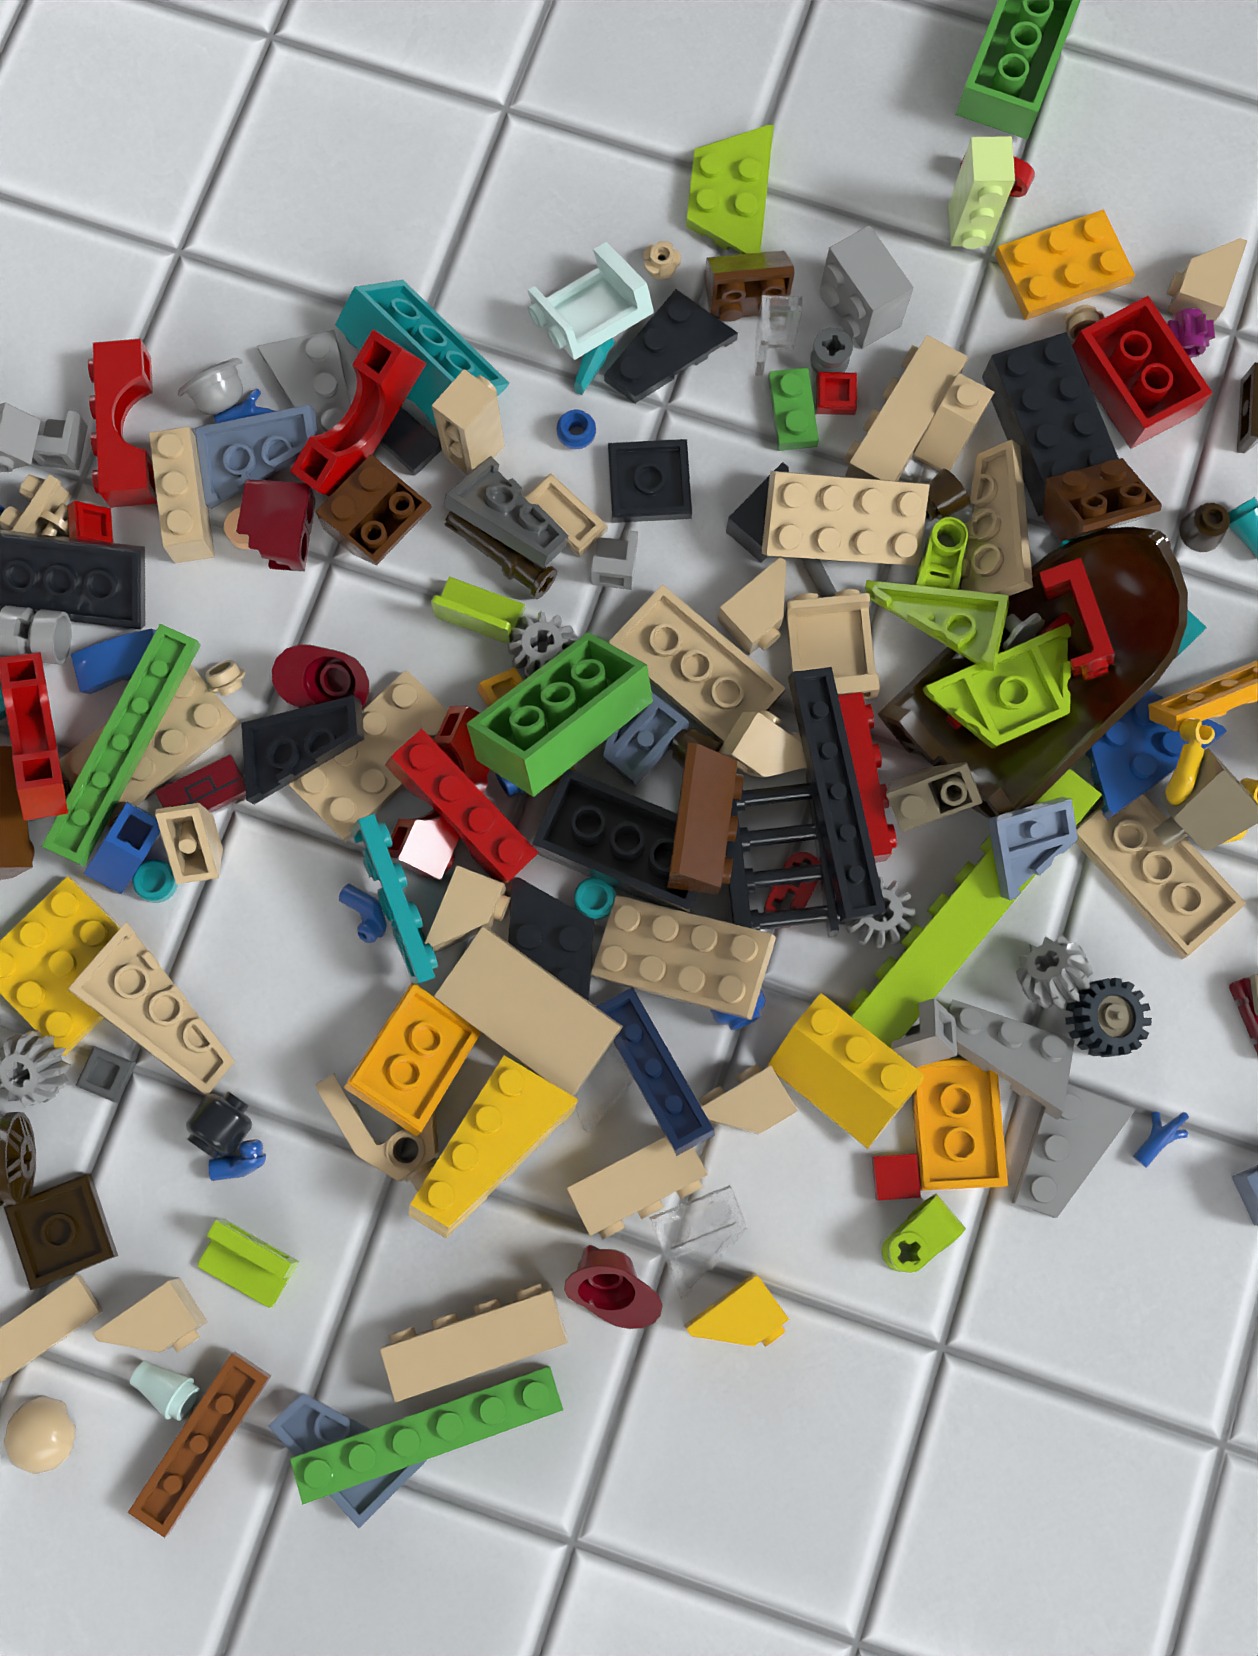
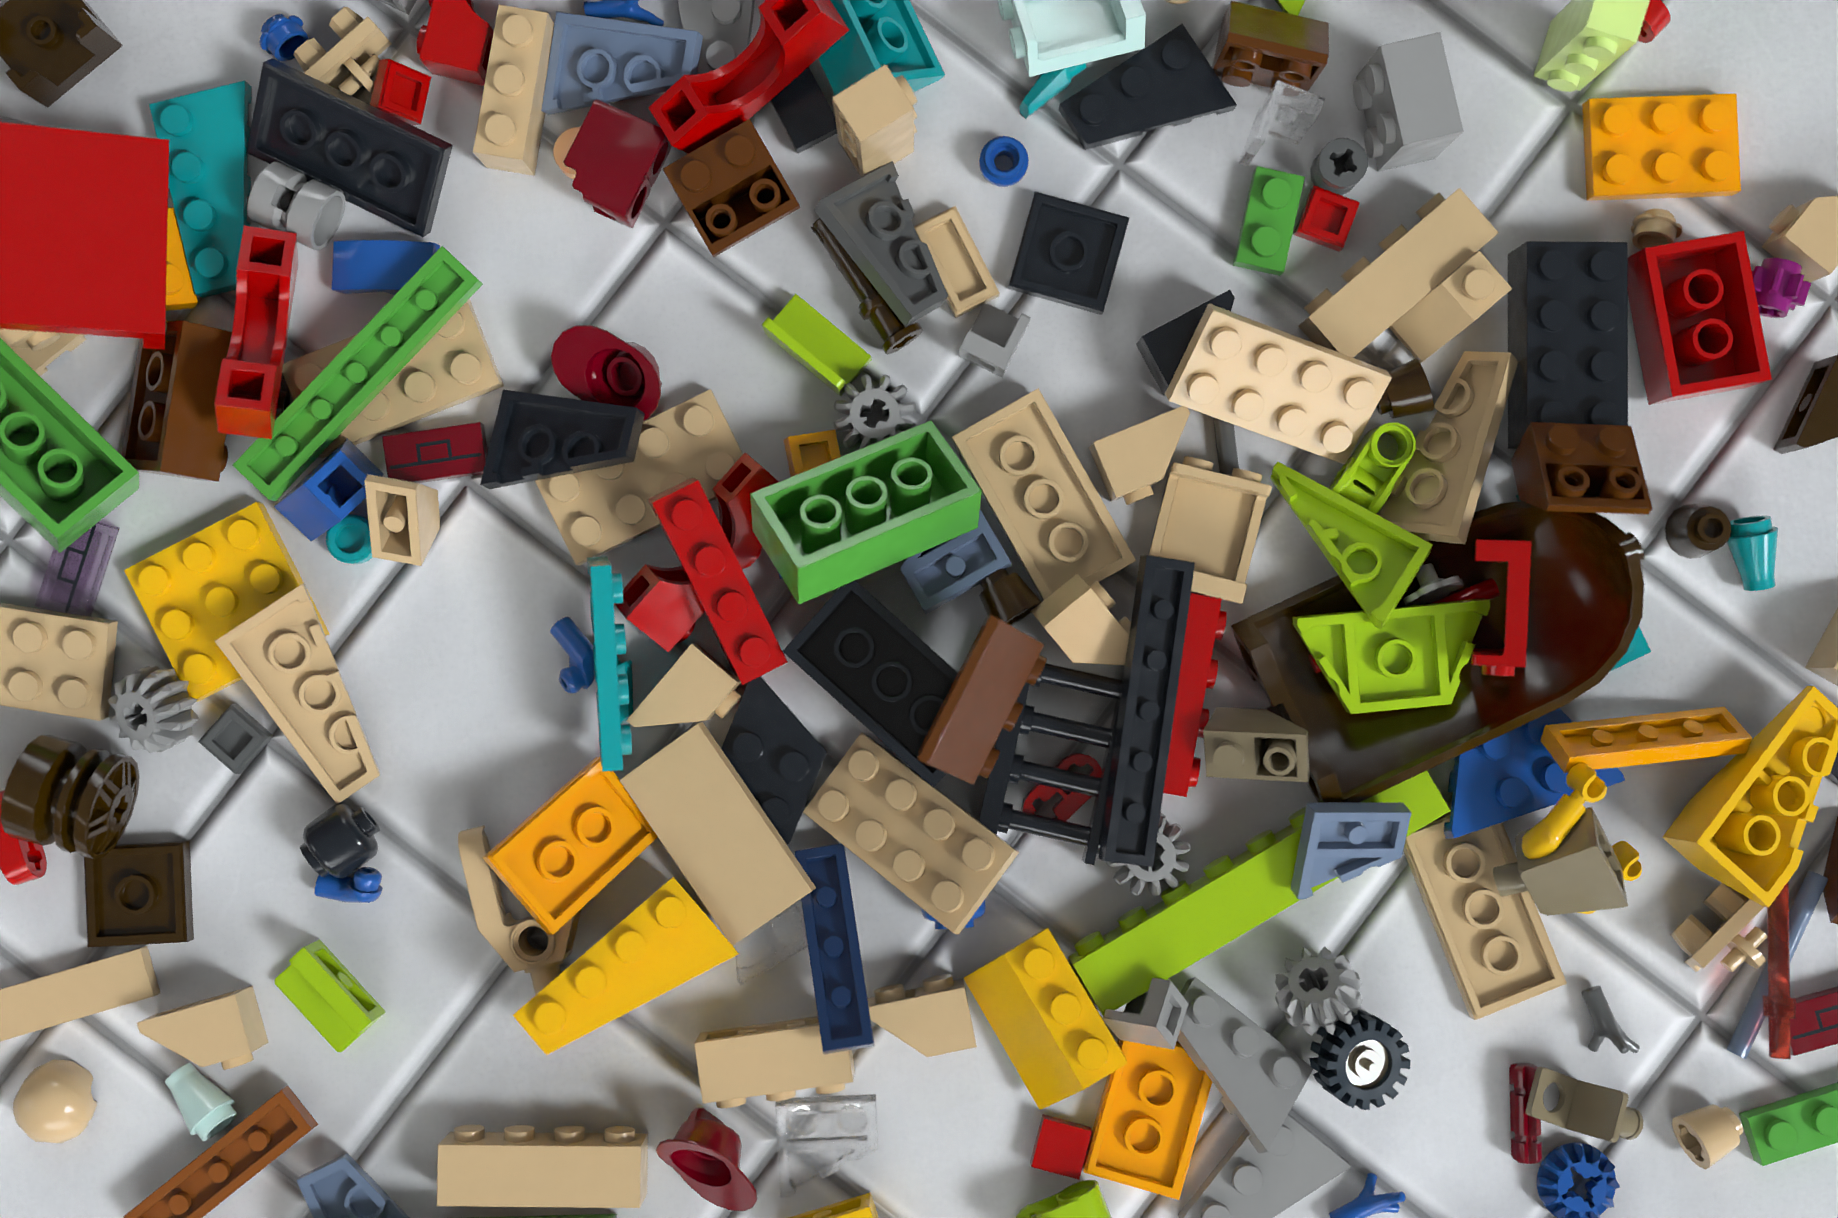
camera: 15 degrees right, 10 degrees up
(225, 677) = (500, 329): tan plate -> none
(594, 898) = (835, 727): teal tile -> none

